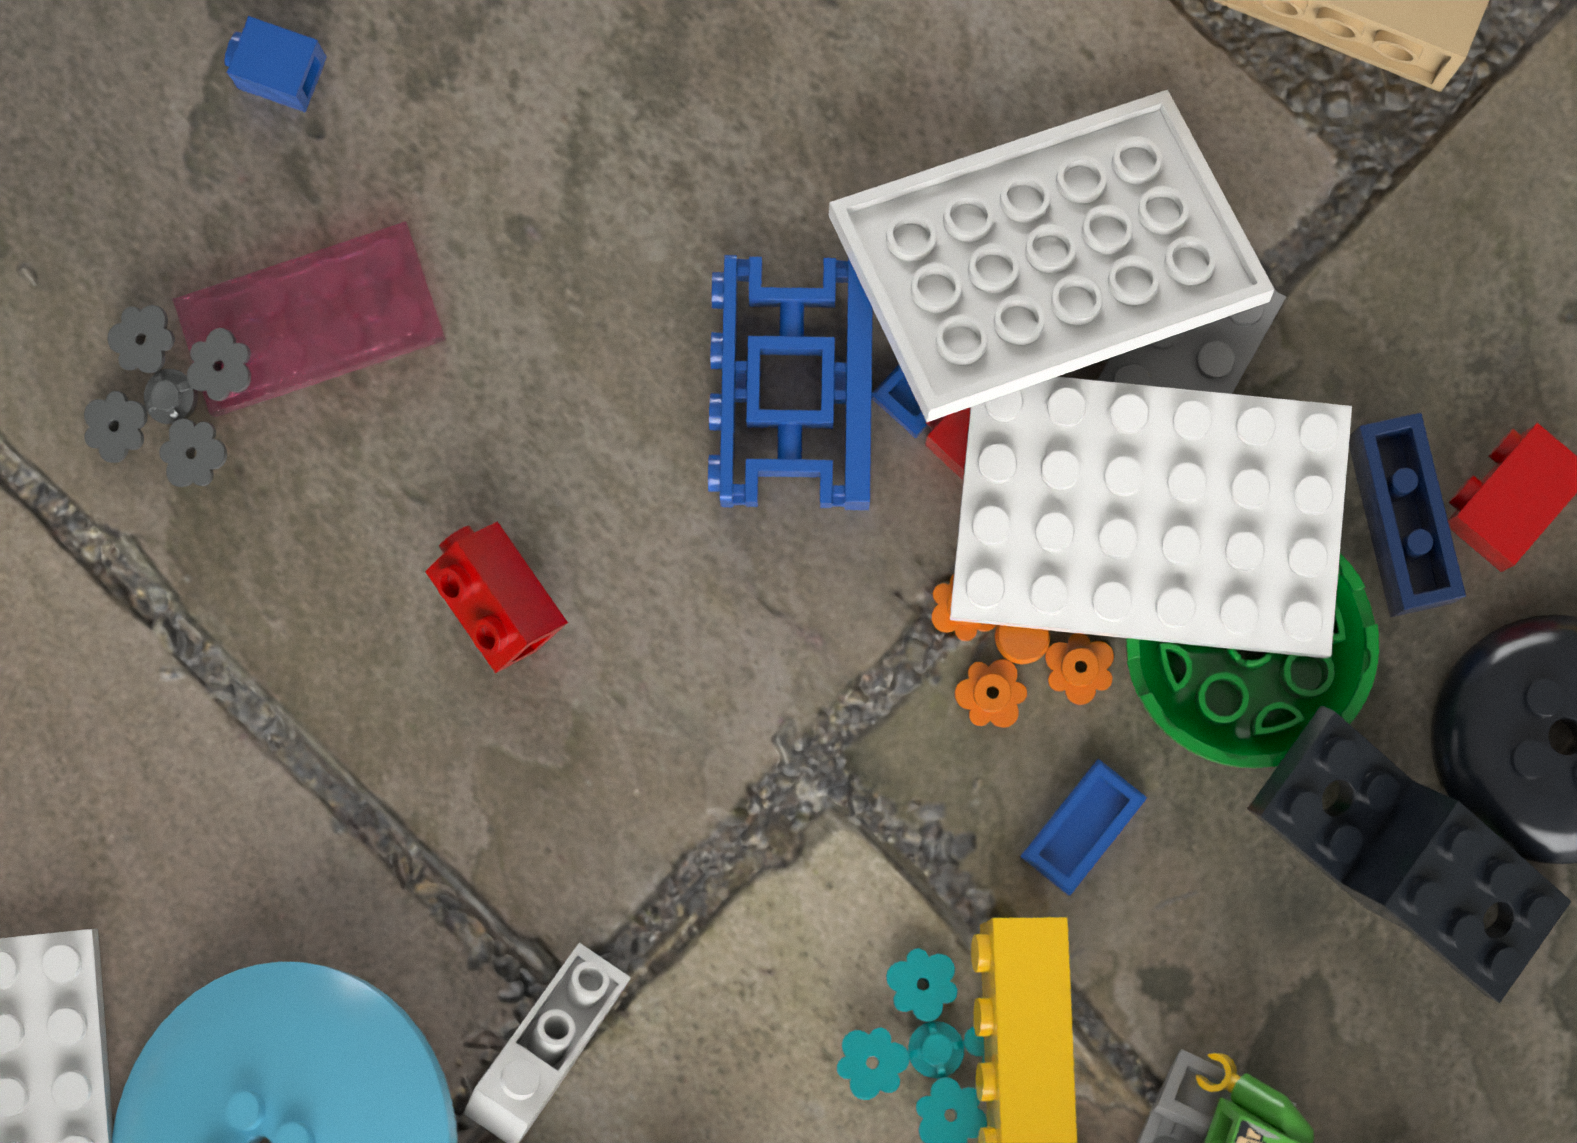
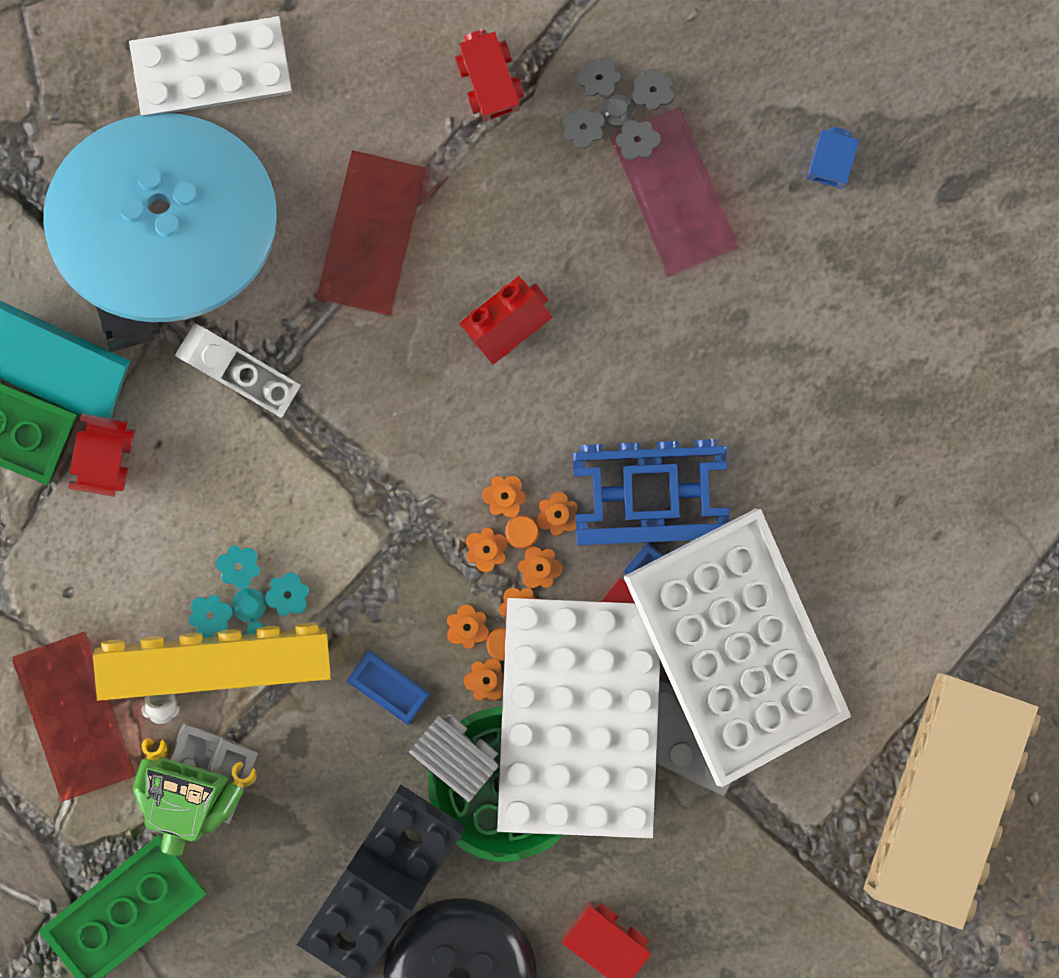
camera: 85 degrees right, 5 degrees up
(77, 604) = (485, 63): none -> red brick
(338, 811) = (371, 233): none -> clear red plate
(842, 596) = (521, 531): none -> orange plant
(1206, 716) = (455, 756): none -> light grey brick
(1406, 515) = (589, 875): dark blue brick -> none

